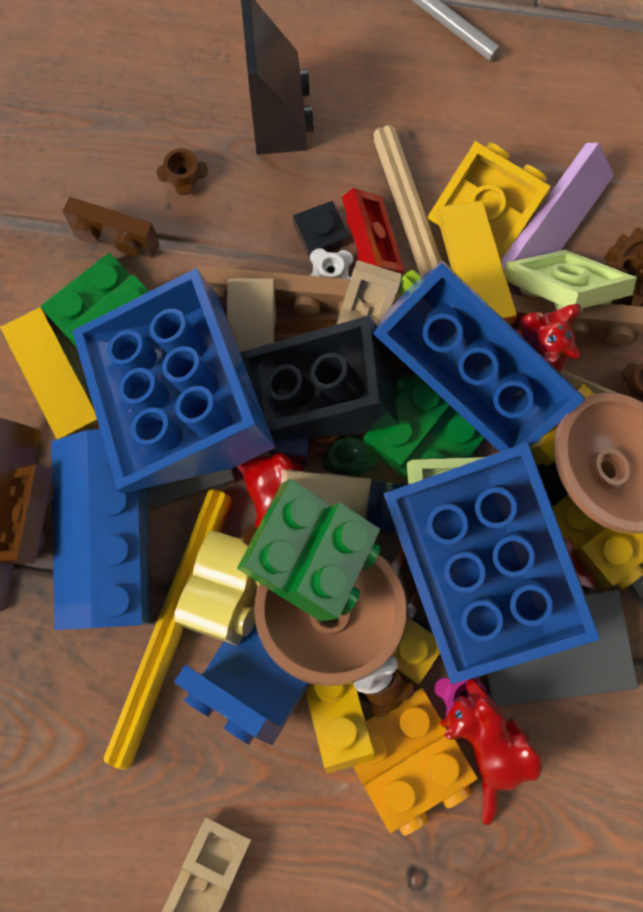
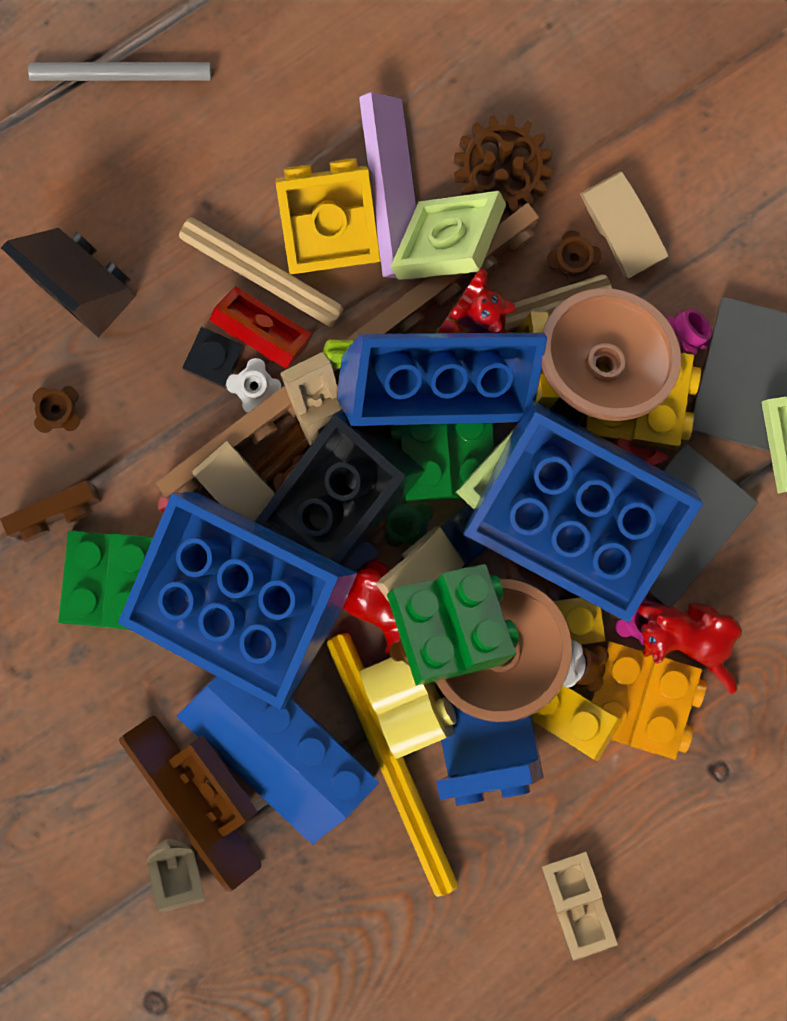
camera: 40 degrees left, 10 degrees up
(50, 374) = (119, 667): yellow tile -> none
(475, 254) = (367, 286): yellow tile -> none

